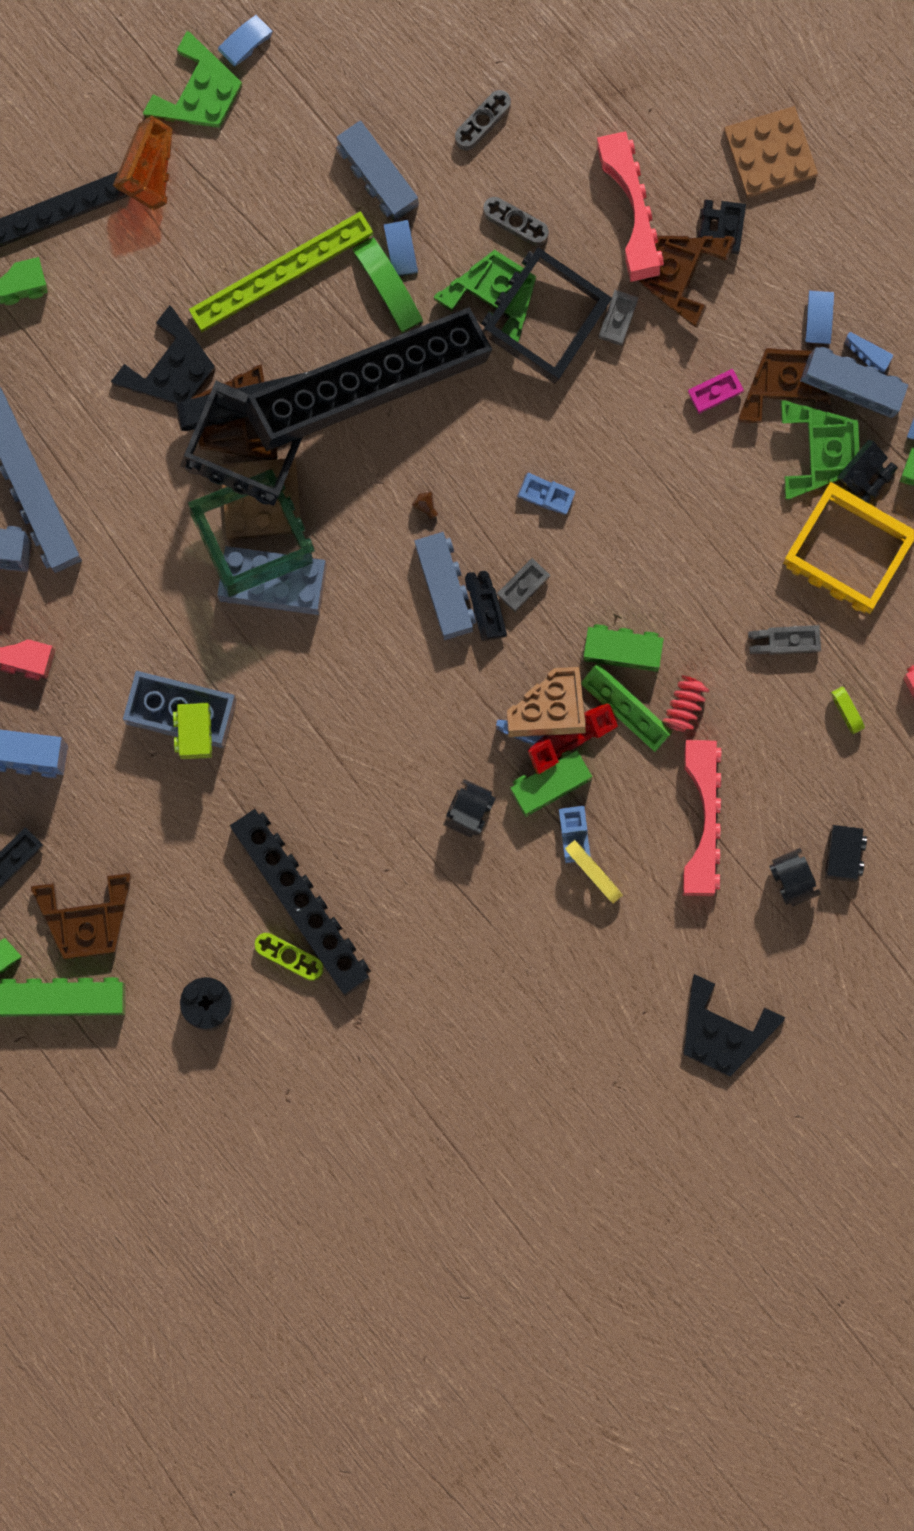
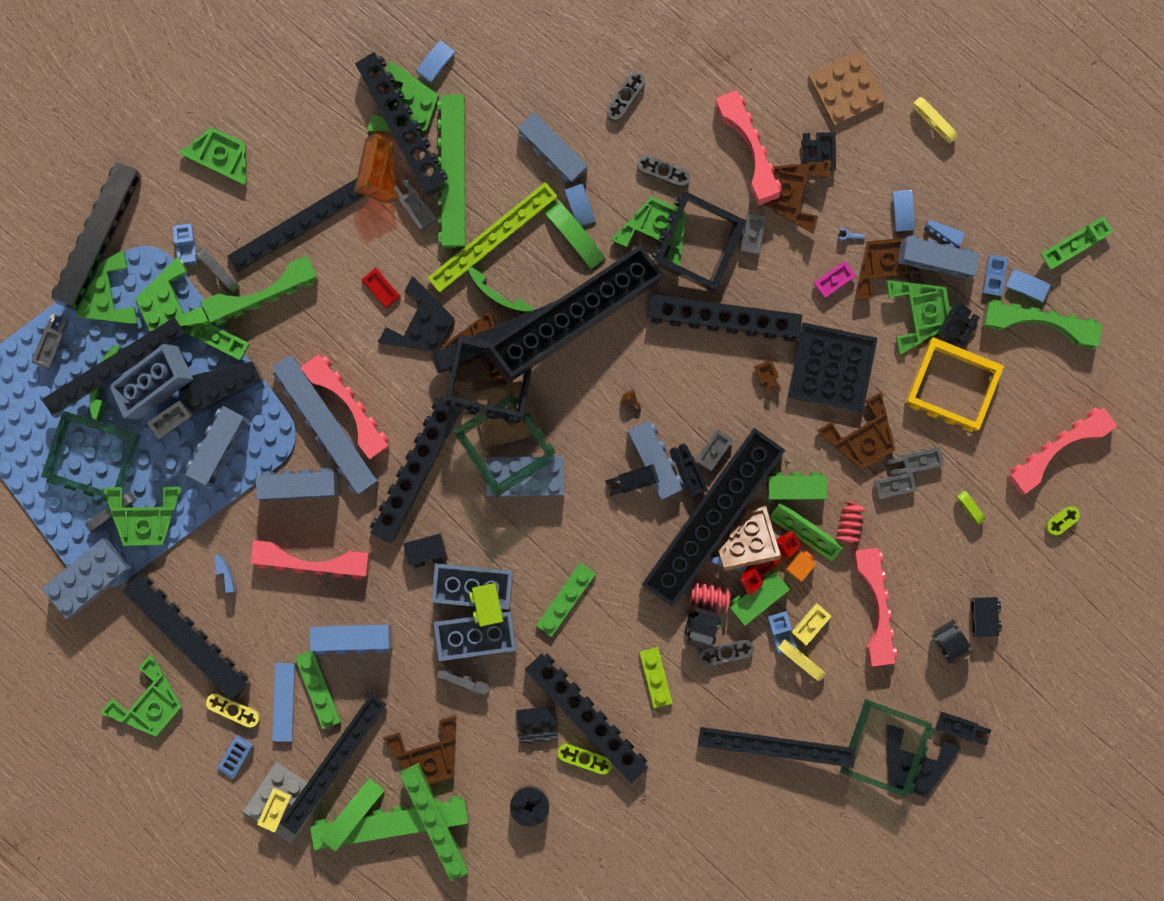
camera: 15 degrees left, 5 degrees up
(31, 413) = (369, 439): none -> coral arch
(78, 1004) = (433, 821): none -> bright green arch
(126, 315) = (380, 288): none -> red tile
(127, 655) = (425, 550): none -> black brick
(132, 564) = (417, 480): none -> black brick
(148, 831) = (464, 681): none -> flat silver hinge
(157, 34) = (368, 68): none -> black brick
(161, 775) = (467, 639): none -> sand blue brick
(188, 218) = (415, 206): none -> flat silver hinge
(234, 894) = (537, 717): none -> black plate
(244, 181) = (453, 162): none -> bright green brick
(298, 363) = (479, 279): none -> bright green slope
(299, 747) = (565, 599): none -> bright green plate
(399, 866) = (655, 677): none -> lime plate
(412, 605) = (634, 479): none -> black hinge
(482, 385) = (791, 320): none -> black brick
(487, 771) = (710, 597): none -> coral piece
(503, 839) = (739, 644): none -> flat silver beam
(507, 669) = (713, 517): none -> black brick
(542, 977) = (776, 747): none -> black plate
(546, 494) = (719, 377): medium blue slope -> none
(608, 498) = (766, 374): none -> reddish brown plate
(612, 750) = (801, 565): none -> orange brick
(614, 828) = (811, 624): none -> light yellow plate
(649, 984) = (921, 750): none -> clear green window
(694, 503) = (832, 367): none -> black plate
(726, 605) = (868, 442): none -> reddish brown wing
(744, 338) = (850, 235): none -> medium blue hand
(753, 666) = (895, 485): none -> flat silver plate
(790, 993) = (960, 727): none -> black hinge
(878, 208) = (934, 119): none -> light yellow beam

